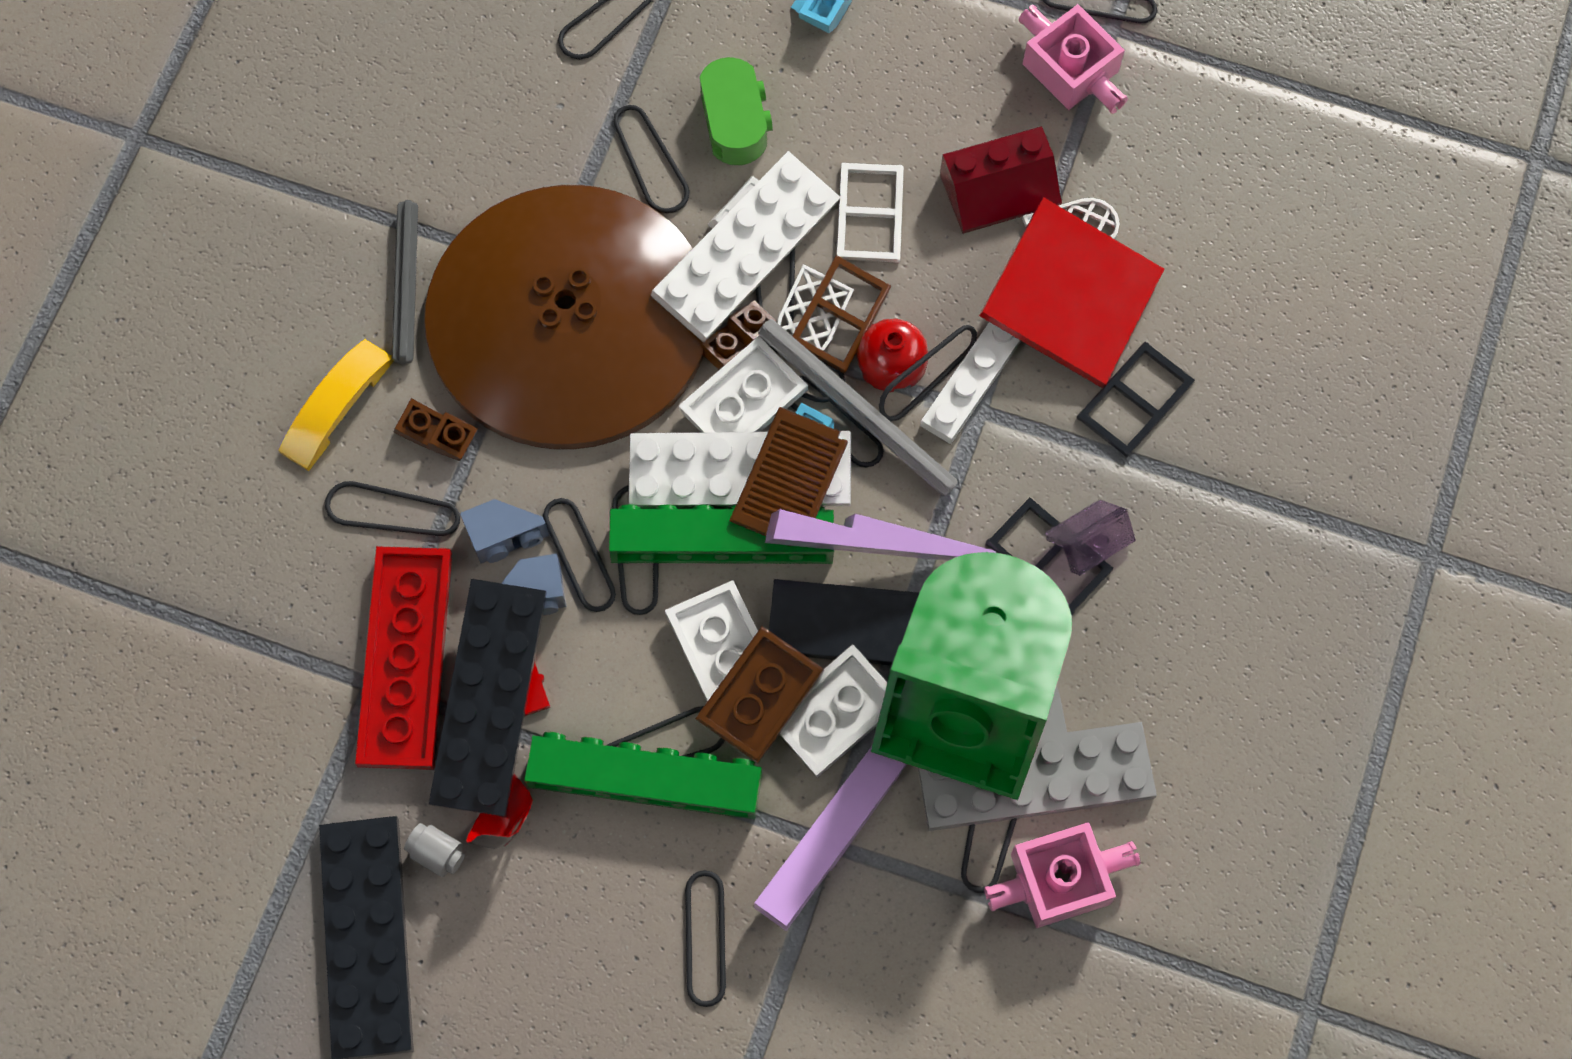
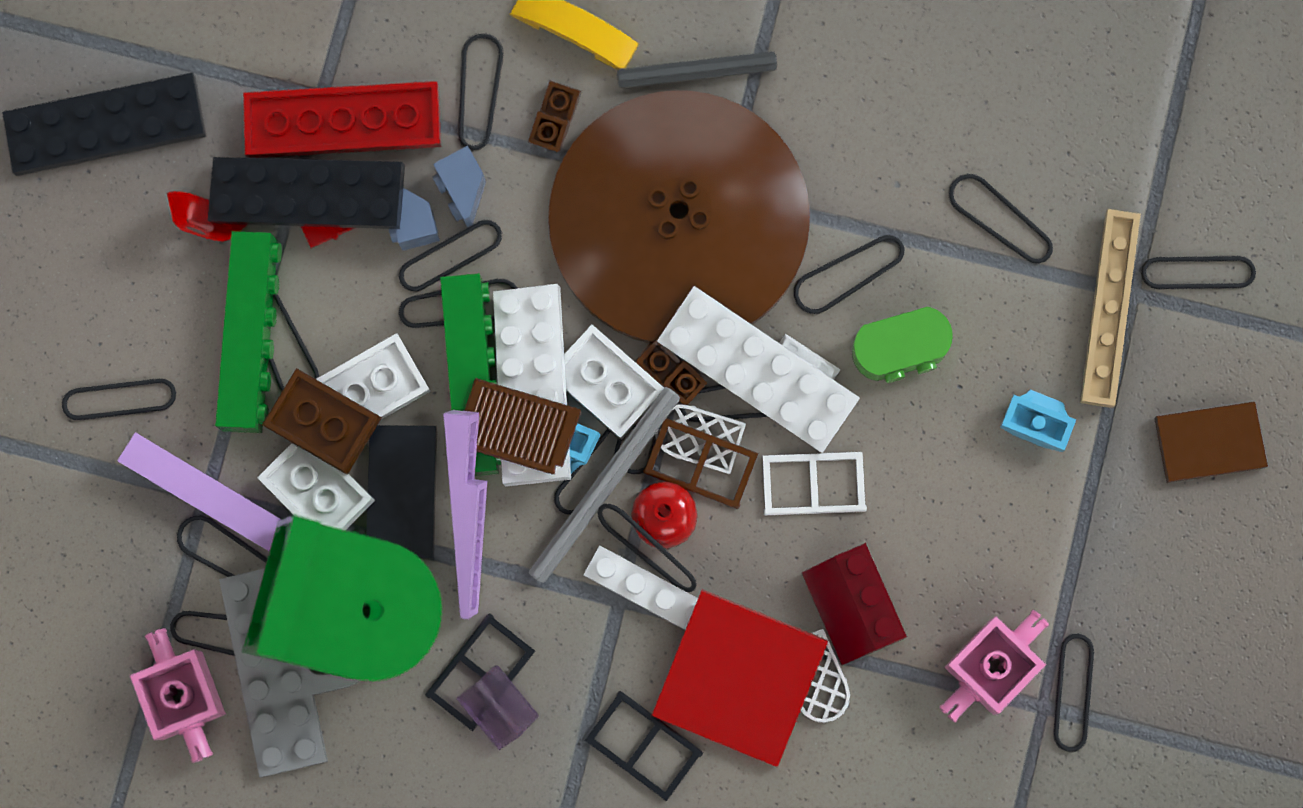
camera: 90 degrees right, 10 degrees up
(434, 850) = (175, 167): light grey brick -> none
(869, 827) = (224, 531): none -> black piece

